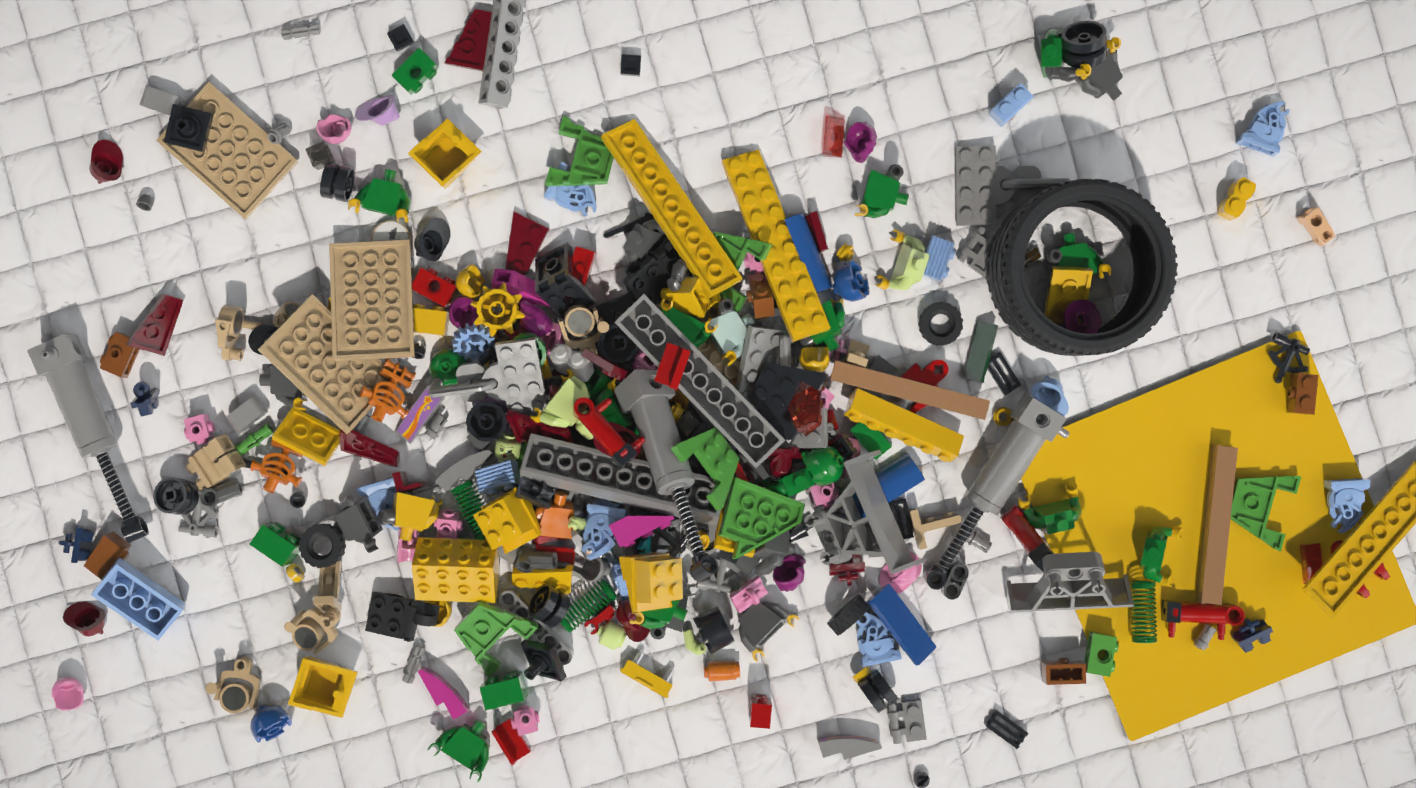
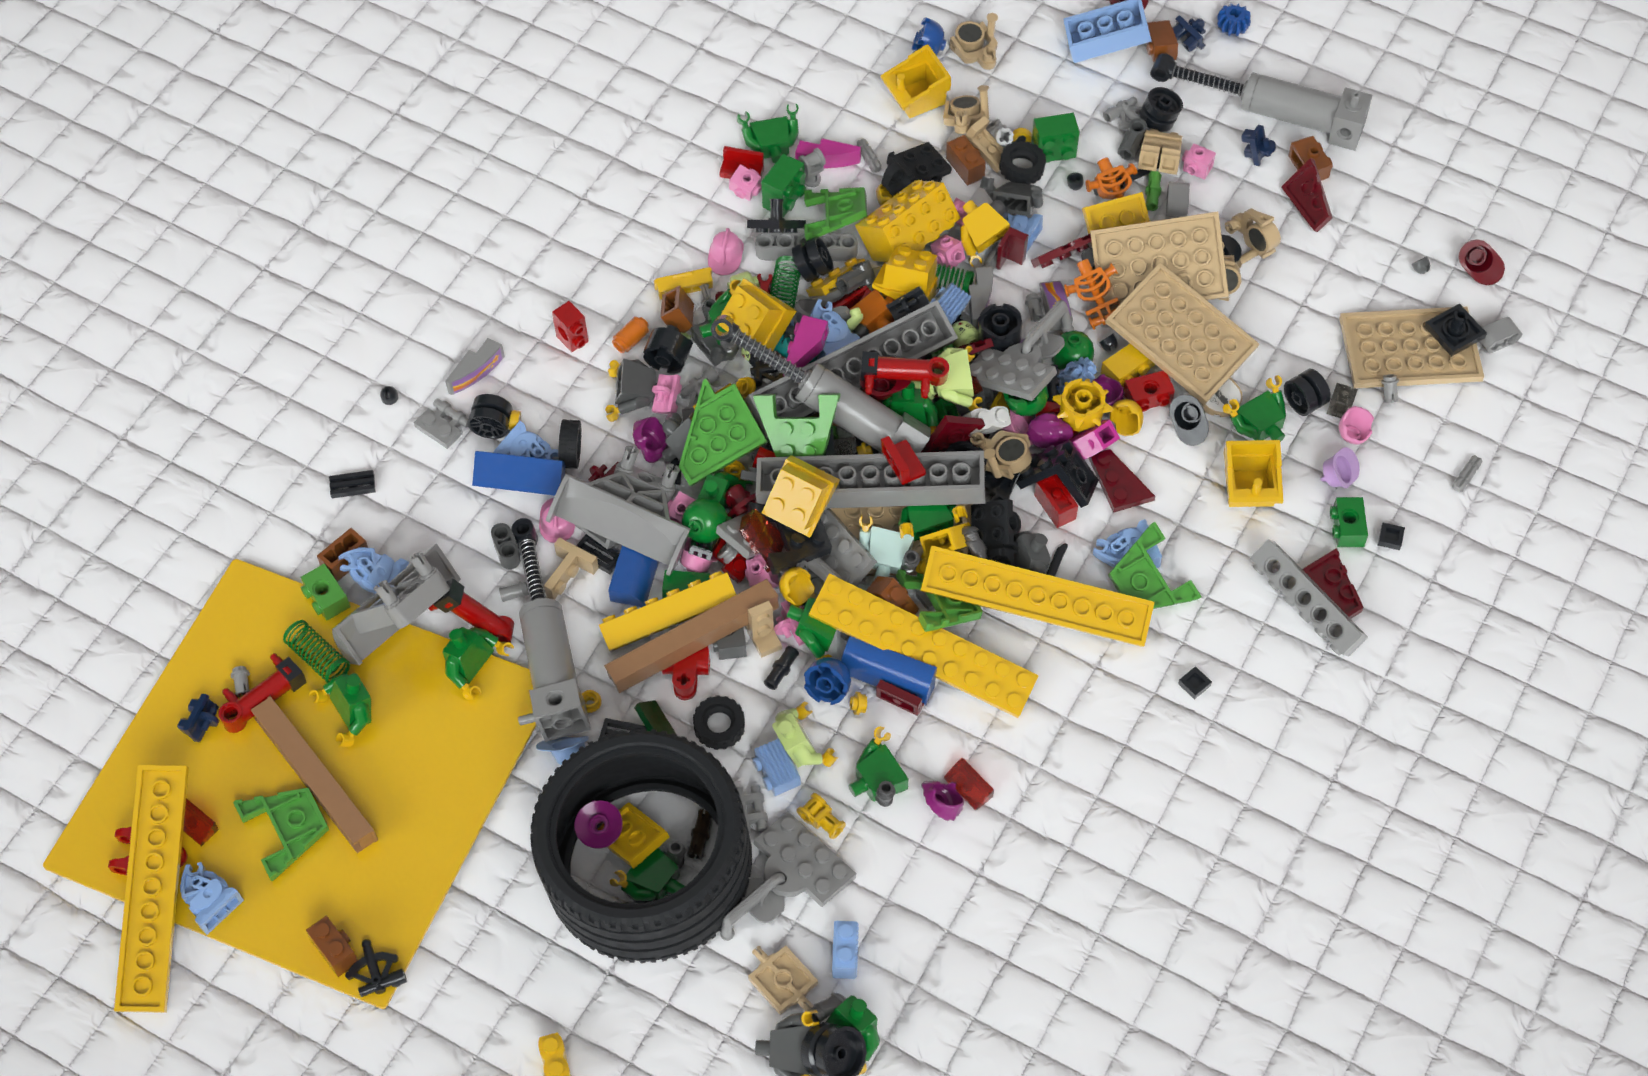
camera: 135 degrees right, 30 degrees down
(26, 524) = (1234, 19): none -> blue gear
(310, 585) = (1002, 135): none -> light grey connector
(354, 590) = (965, 160): none -> dark orange brick
(468, 687) = (813, 165): none -> light grey connector
(592, 678) = (725, 253): none -> bright pink piece
(678, 654) = (677, 309): none -> dark orange brick
(763, 407) = (800, 495): none -> yellow piece
(867, 323) = (781, 667): none -> black pin
(941, 204) = (819, 814): none -> yellow connector
(1054, 637) = (371, 568): none -> light blue piece
(1061, 123) = (782, 979): none -> tan plate

